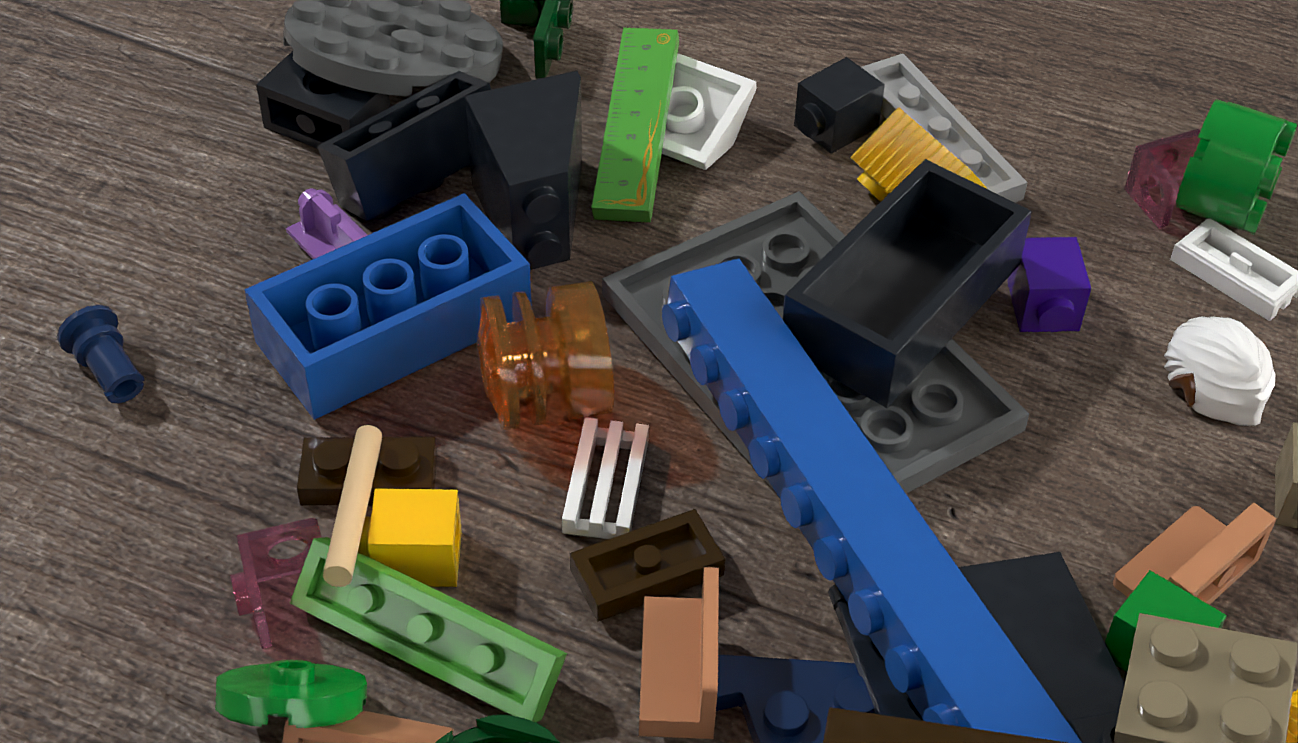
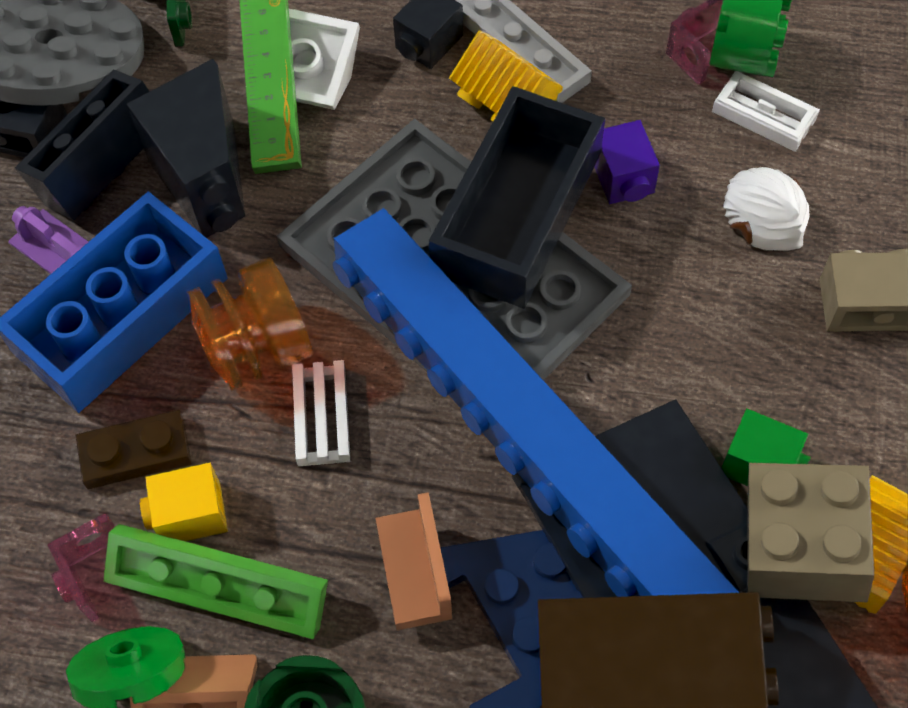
camera: 10 degrees left, 15 degrees up
(352, 507) = (132, 497): tan bar -> none
(645, 563) = (369, 483): dark brown plate -> none
(1201, 552) = (774, 377): nougat panel -> none

